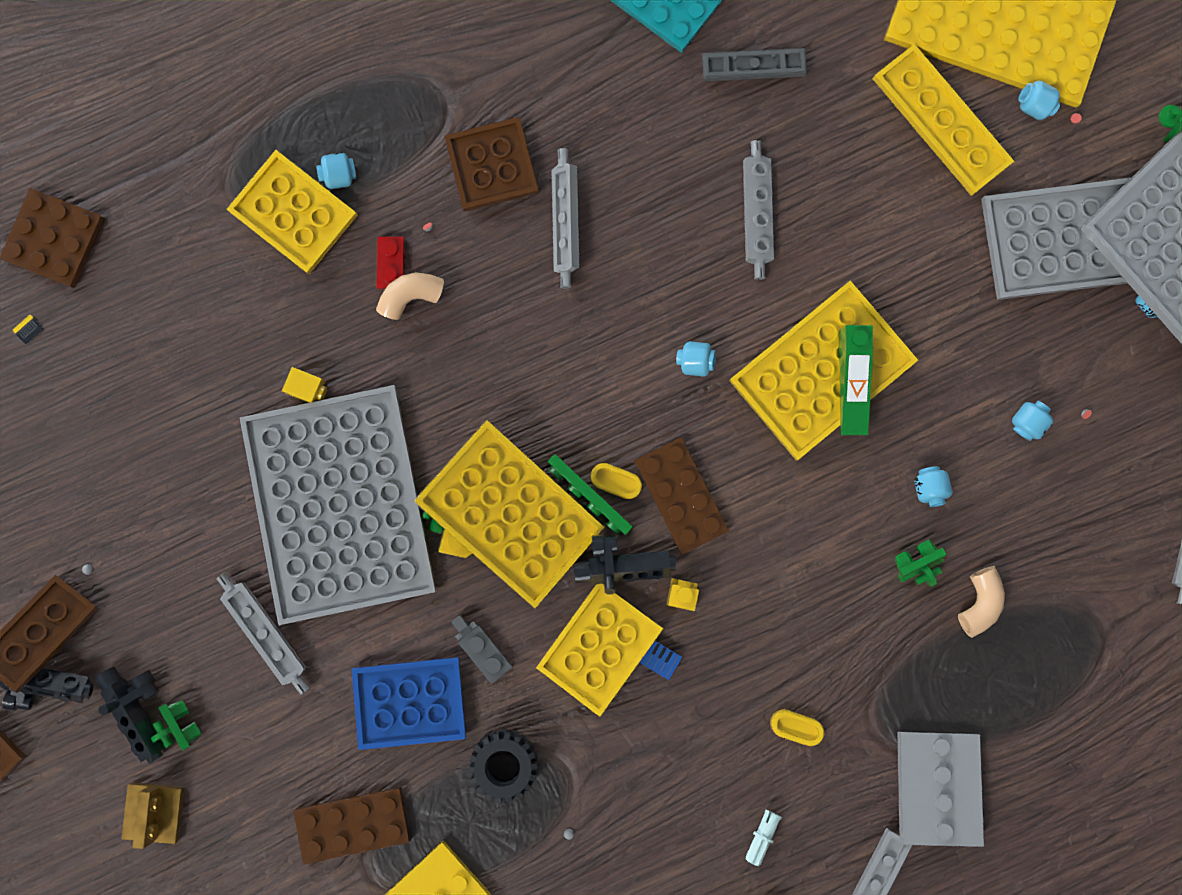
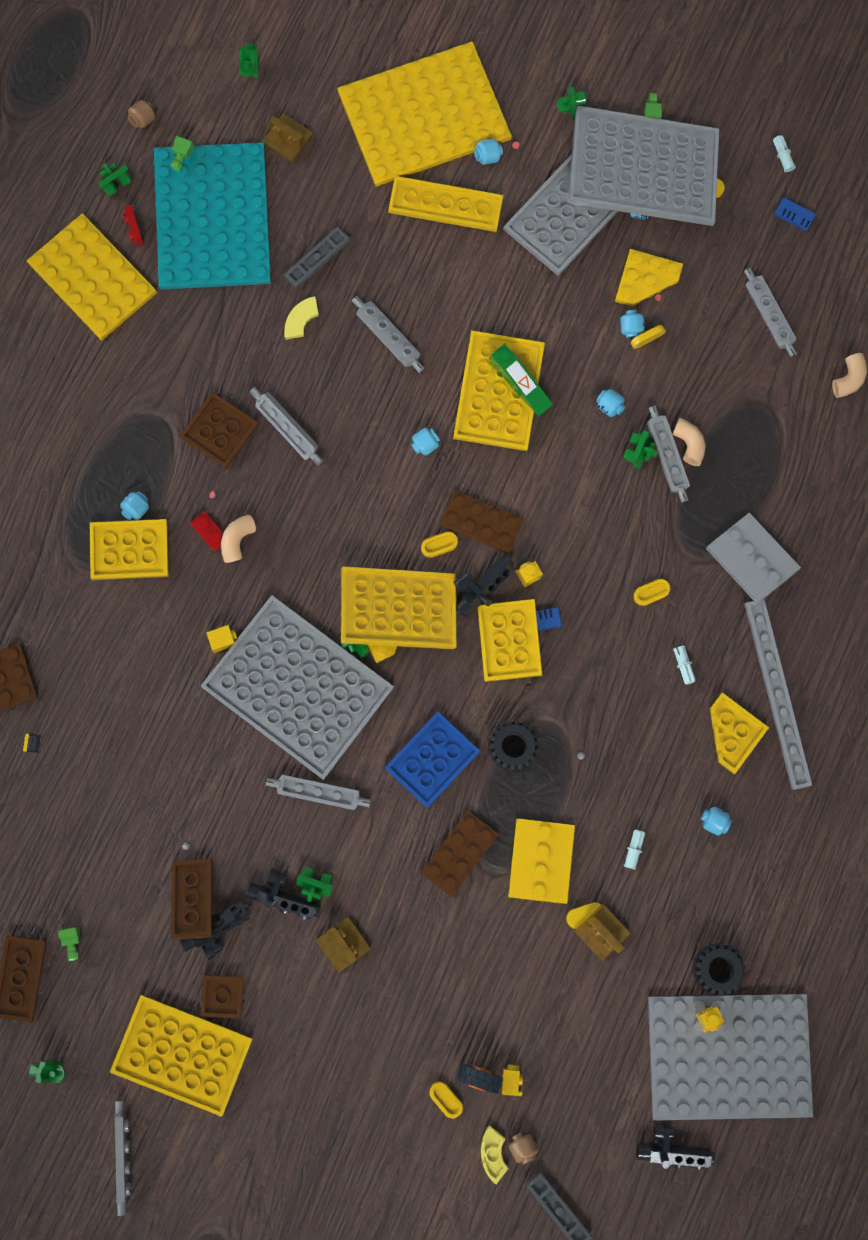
camera: 50 degrees left, 5 degrees down
(481, 649) = (446, 697): dark grey hinge -> none
(579, 488) = (440, 564): green plate -> none
(680, 114) = (299, 317): none -> light yellow tile
(947, 595) = (668, 454): none -> light grey plate
(1037, 448) = (648, 336): none -> yellow tile
(1093, 380) = (645, 277): none -> yellow plate

